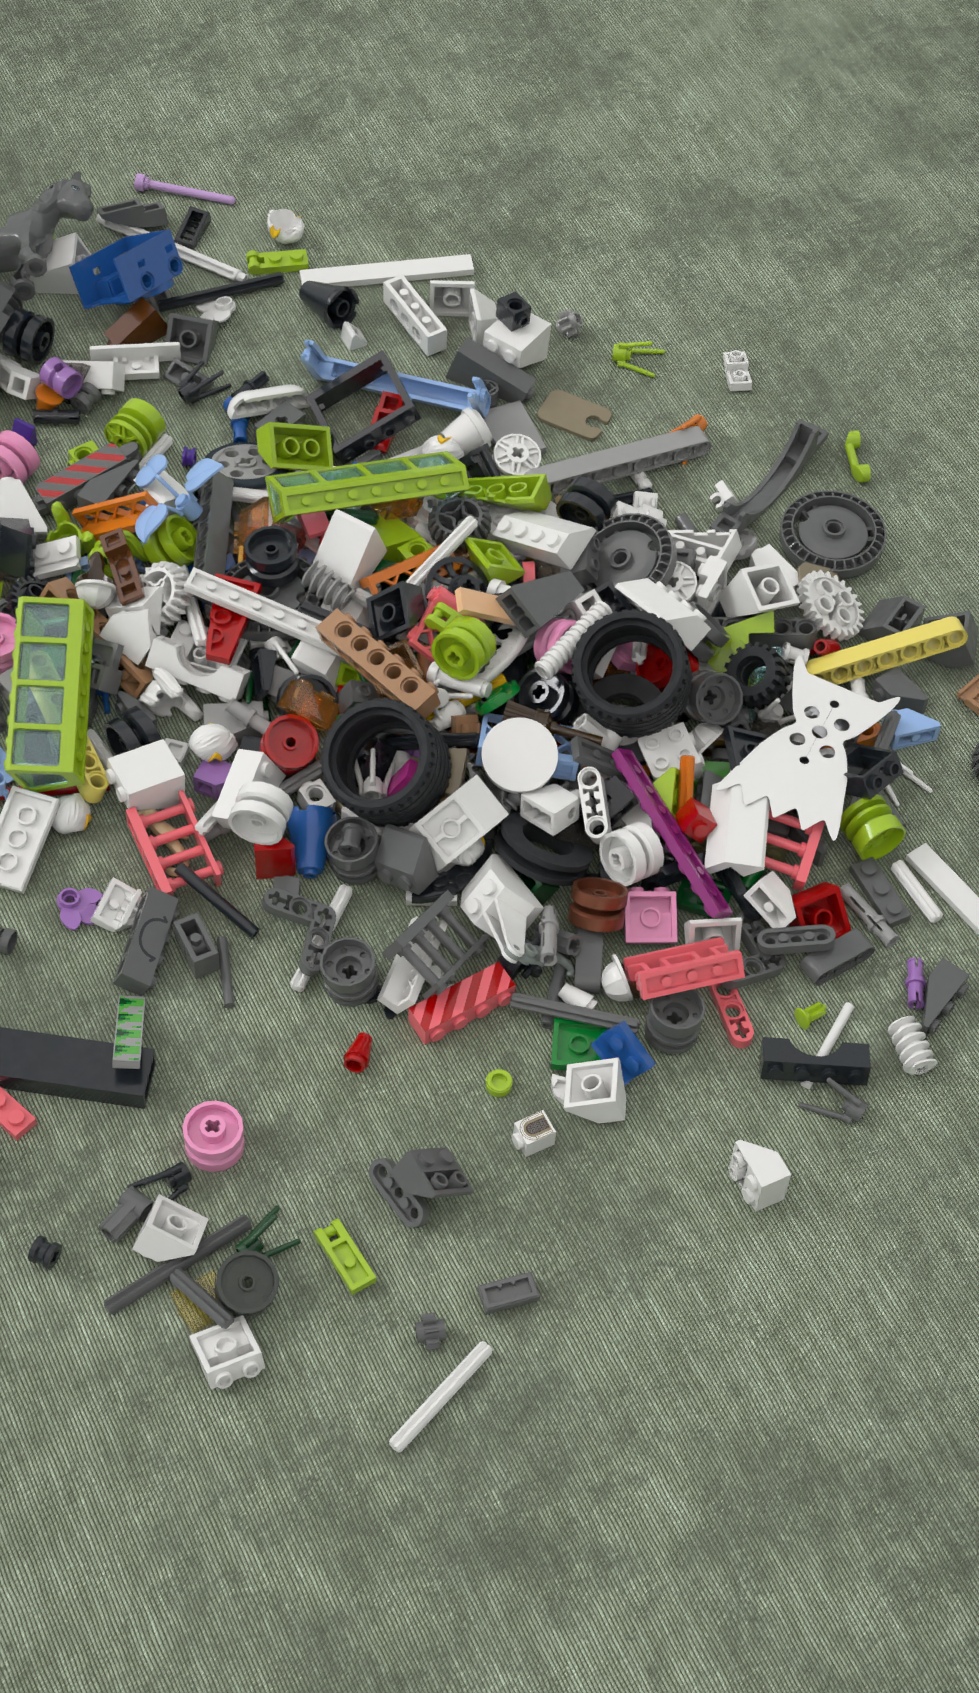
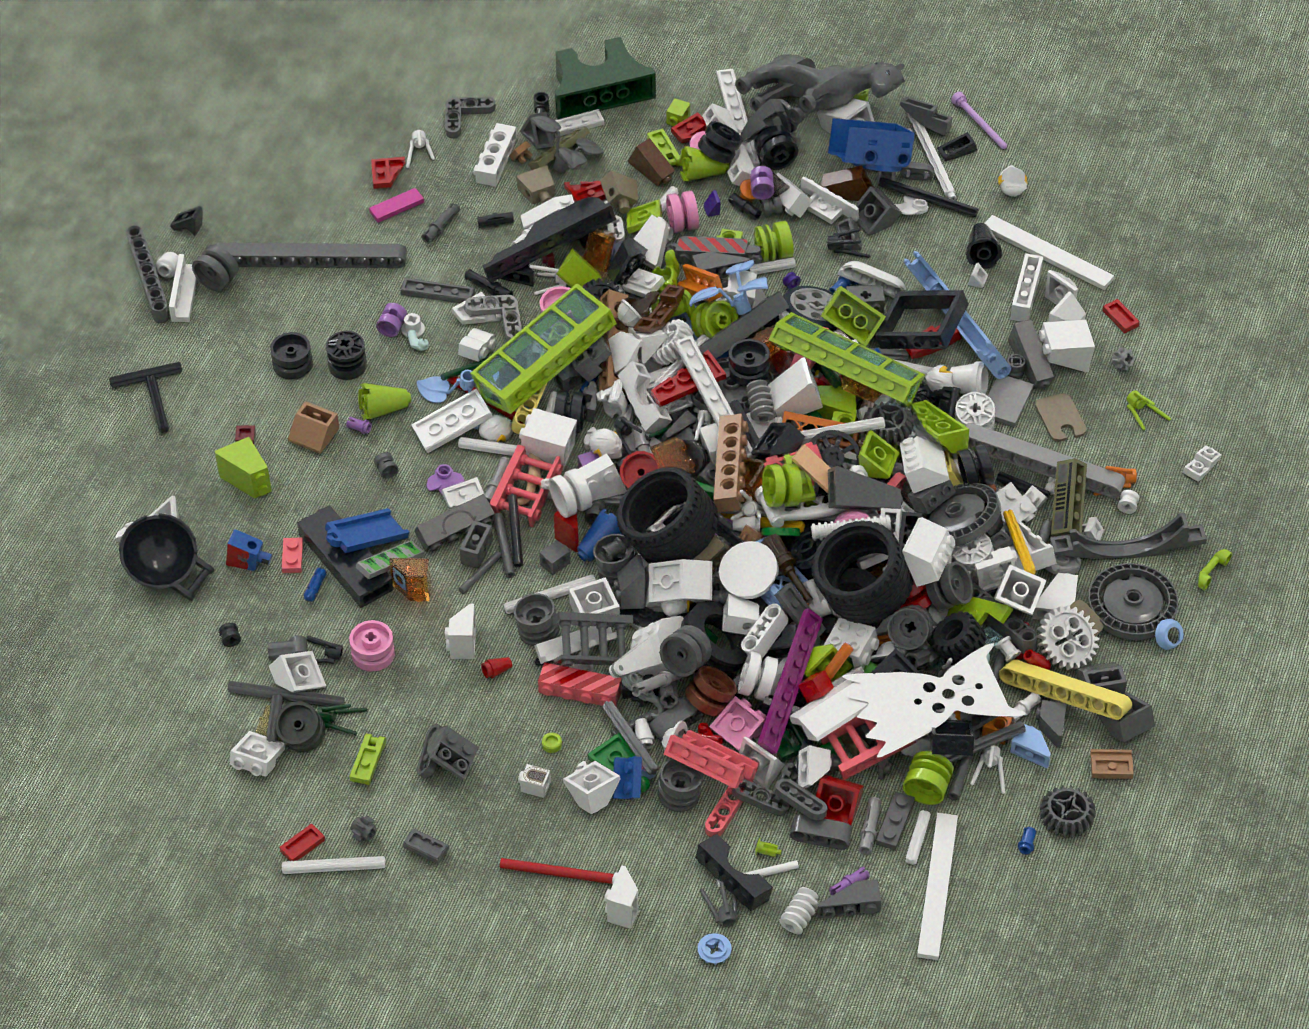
camera: 50 degrees right, 5 degrees down
(66, 1024) = (364, 531): none -> blue piece
(70, 1123) = (314, 584): none -> blue axle
(86, 836) = (487, 446): none -> white axle
(138, 874) = (493, 484): none -> light grey pin
(176, 1031) = (411, 577): none -> clear orange slope
(191, 271) = (917, 171): none -> dark grey beam
(212, 711) = (624, 427): none -> black plant
(220, 926) = (504, 545): none -> dark grey piece
(255, 383) = (881, 264): black axle -> none
(276, 261) = (986, 201): lime plate -> none
(298, 1046) = (462, 634): none -> white slope
(310, 919) = (548, 575): dark grey beam -> none
(382, 1403) = (302, 843): none -> red tile
(383, 910) = (594, 598): none -> white brick
(513, 311) = (1073, 321): black brick -> none
(525, 287) = (1121, 316): none -> red tile
(550, 881) = (685, 650): none -> dark grey wheel
(625, 950) = (704, 730): none -> red arm
(660, 1201) = (556, 870): none -> red piece
(686, 479) = (1069, 497): none -> olive brick
(706, 548) = (1019, 541): none -> yellow axle
(723, 448) = (1128, 501): none -> white wheel
(884, 1140) = (711, 941): none -> light blue gear
(889, 535) = (1162, 632): none -> light blue piece

